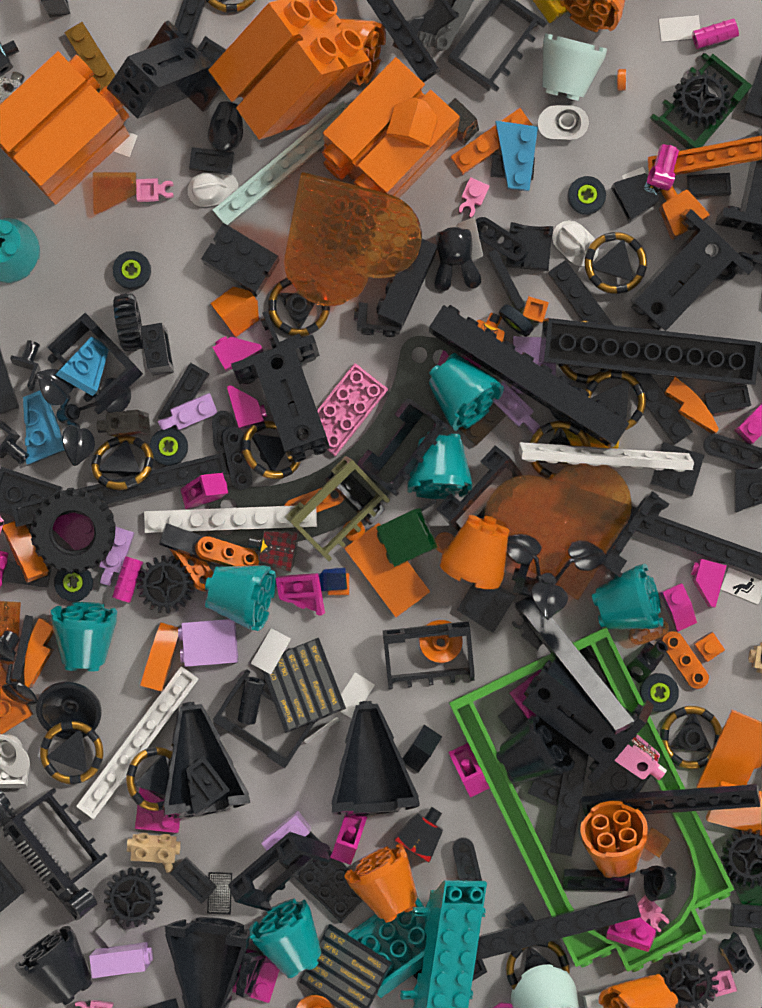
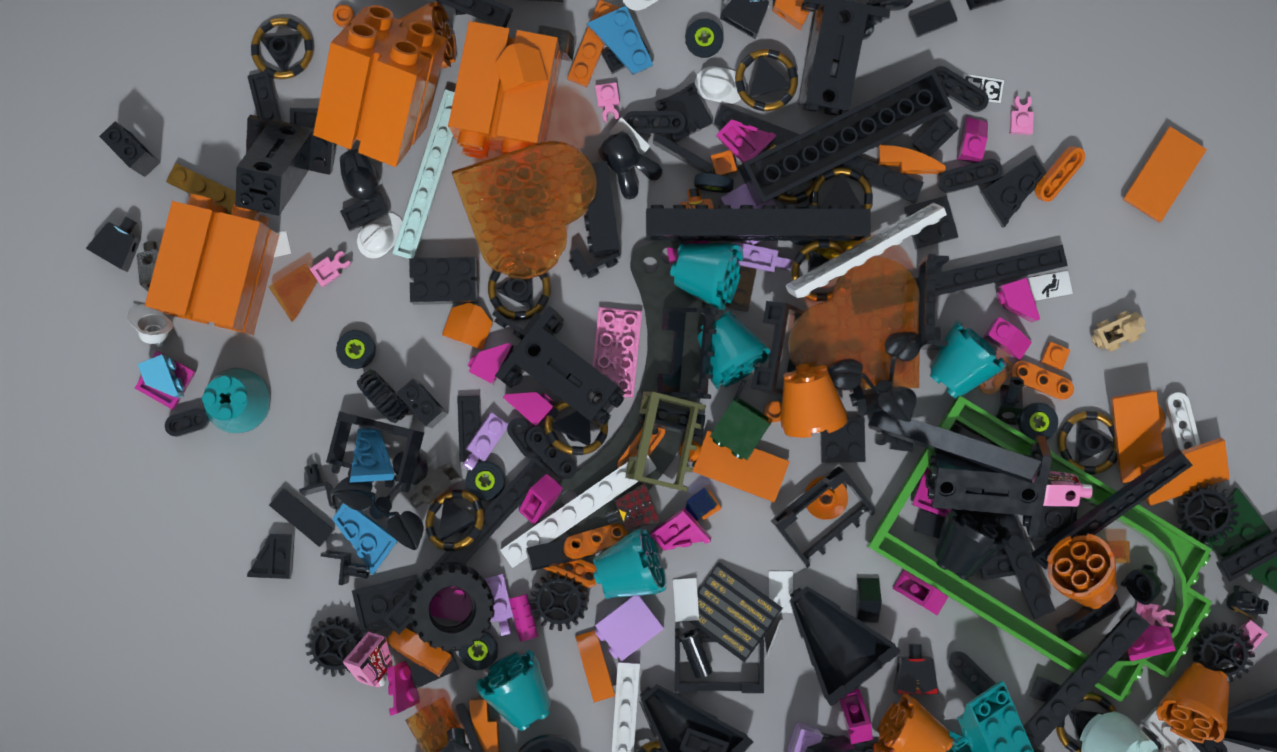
camera: 30 degrees left, 0 degrees up
(565, 301) = (744, 140): none -> dark pink wing

